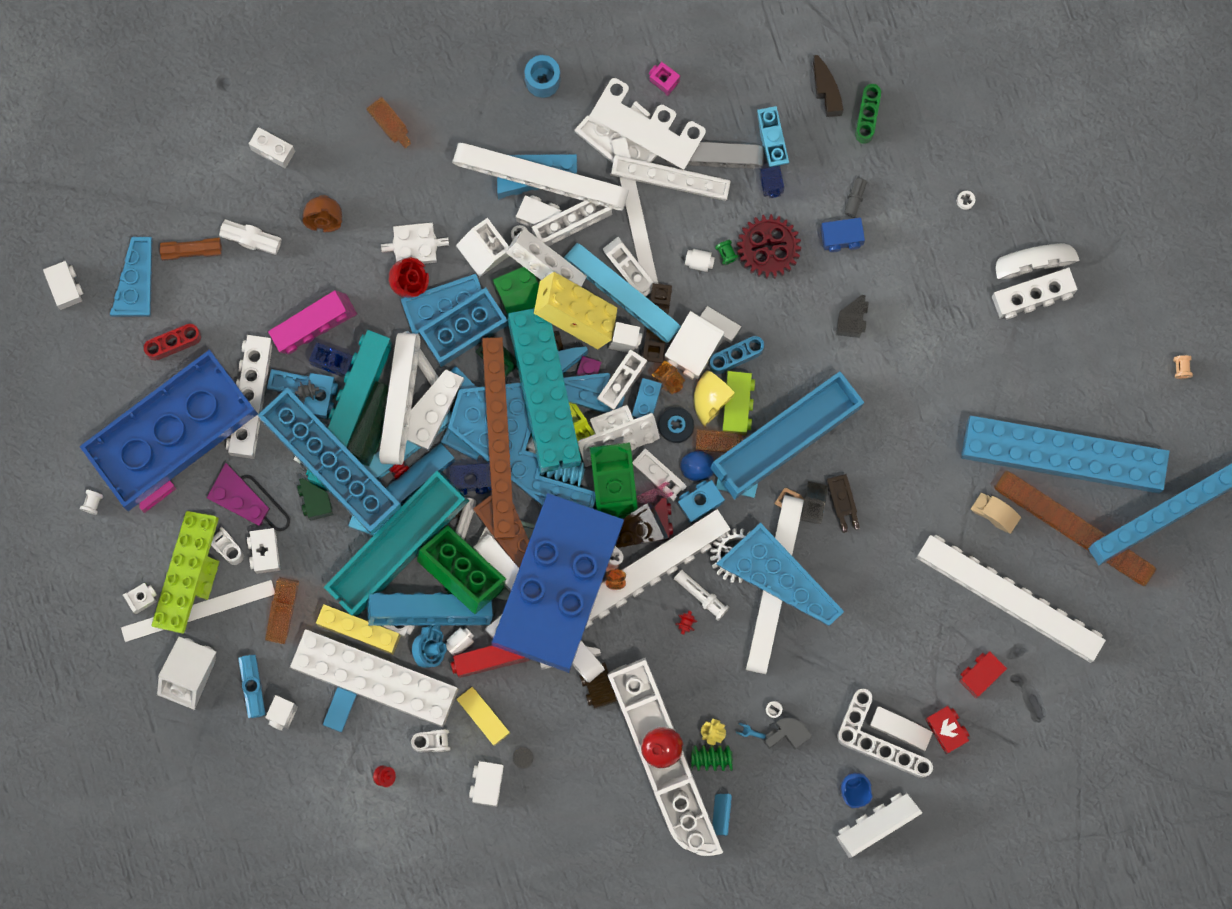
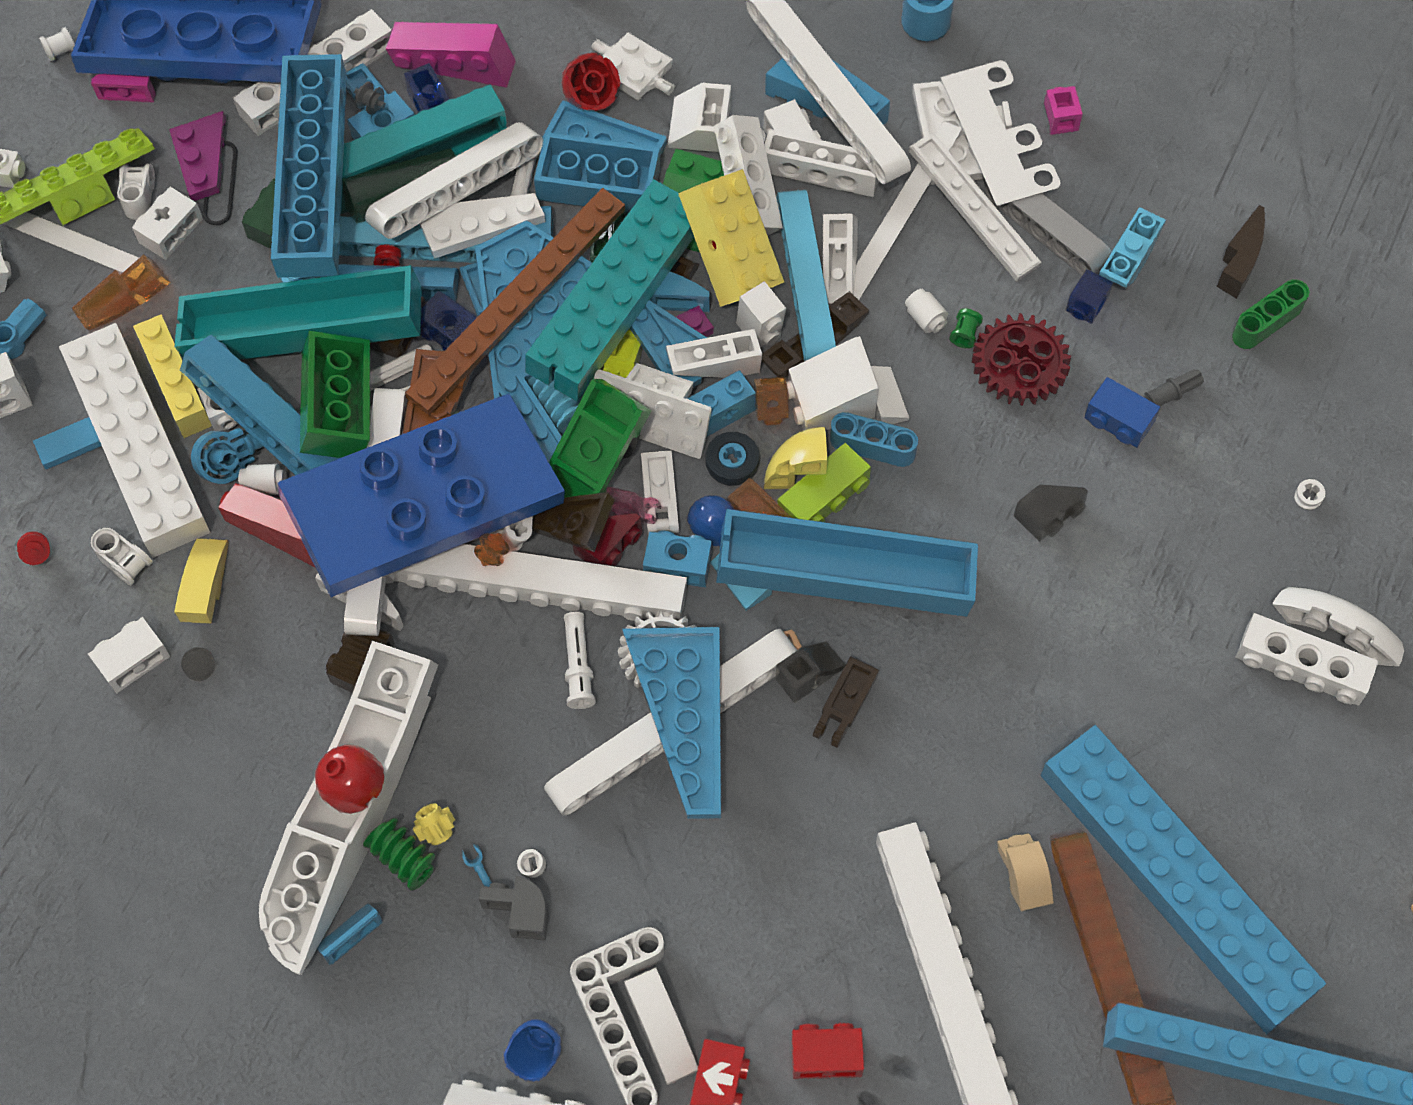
camera: 45 degrees right, 15 degrees down
(686, 622) = (528, 675): red wheel -> none

